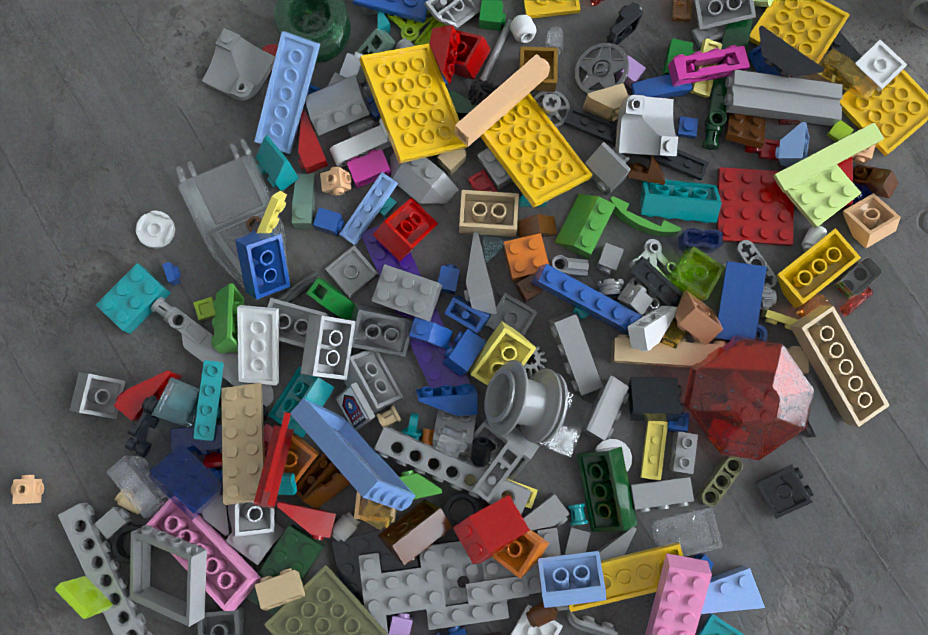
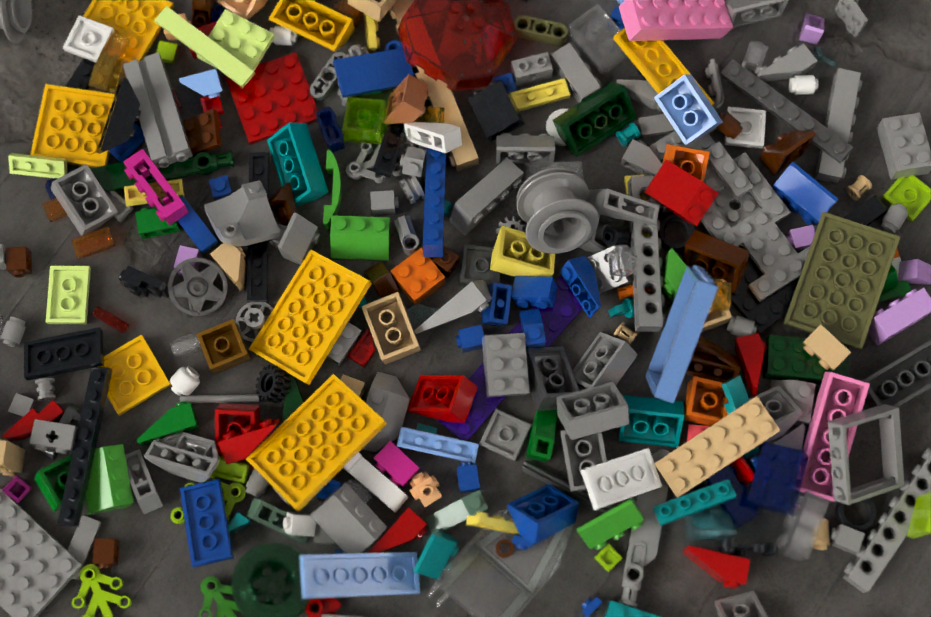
camera: 110 degrees left, 5 degrees down
(274, 464) = (722, 399): red fence -> none
(355, 406) = (632, 366): tile -> none
(502, 100) = (277, 356): light nougat brick -> none

